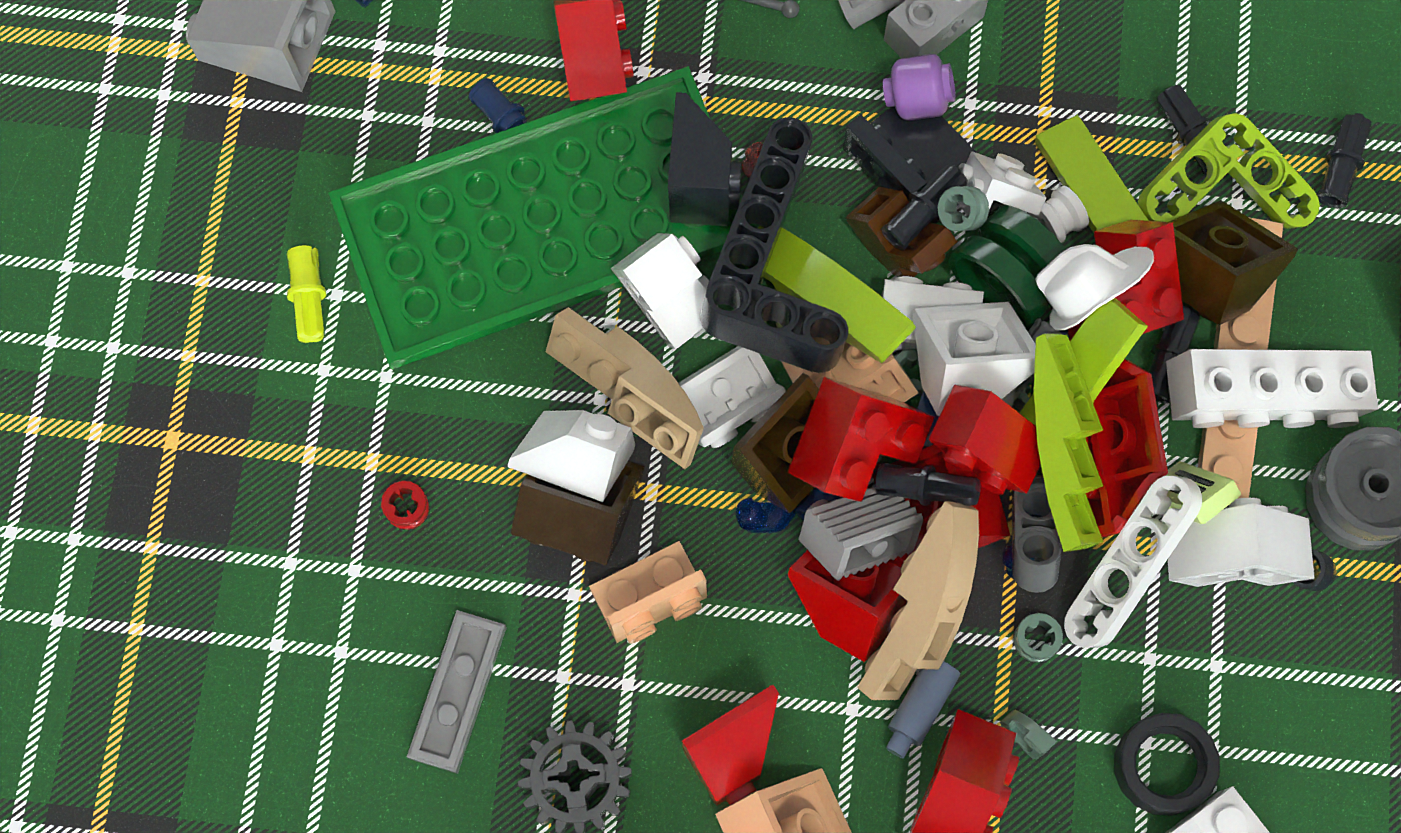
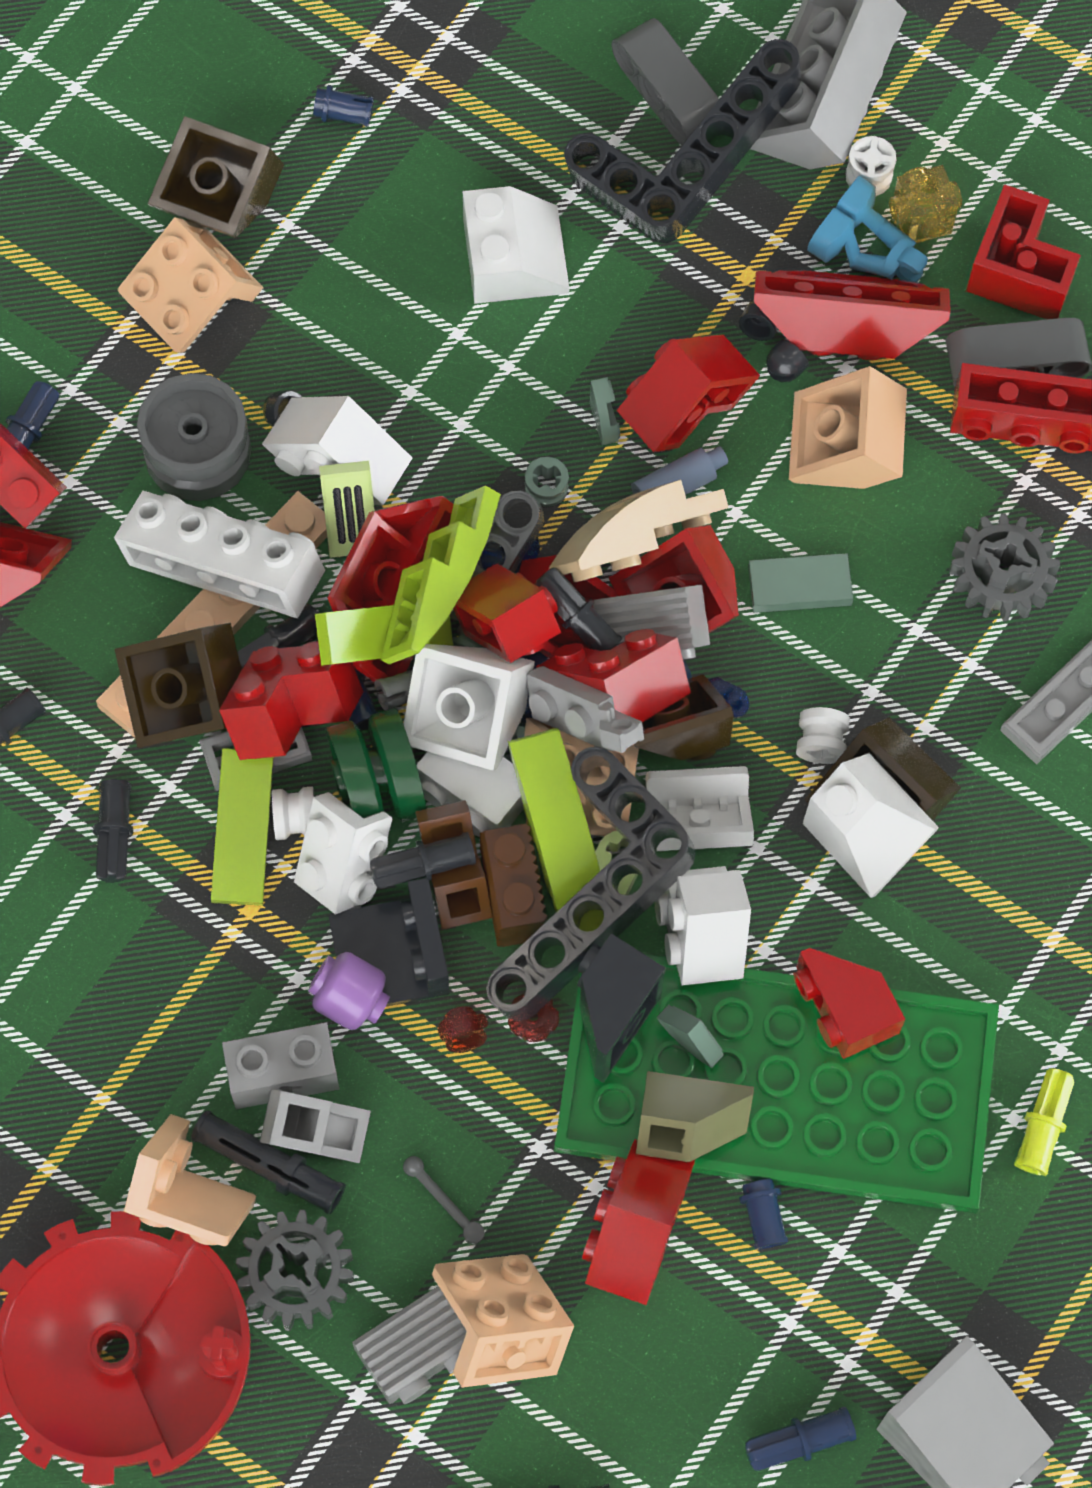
camera: 155 degrees left, 5 degrees down
(417, 495) = (1058, 878): red bush -> none
(509, 286) = (851, 999): none -> red slope
(593, 119) = (690, 1116): none -> olive slope
(628, 190) = (691, 1034): none -> sand green tile
(635, 380) = (775, 836): tan slope -> none
(650, 593) = (864, 671): light nougat bracket -> none
(656, 522) = (822, 735): none -> white wheel
(733, 748) = (857, 519): red slope -> none
(755, 664) = (800, 583): none -> sand green tile
(818, 120) = (463, 1029): none -> clear red plate
(841, 237) = (512, 883): none -> reddish brown brick
(862, 375) = (580, 711): none -> light grey hinge
(969, 196) = (383, 823): sand green bush -> none
(1088, 278) = (328, 683): white piece -> none
(1126, 557) = (440, 473): white beam -> none
(1203, 748) = (498, 302): black tyre -> none
(1223, 160) = (117, 772): lime beam -> none

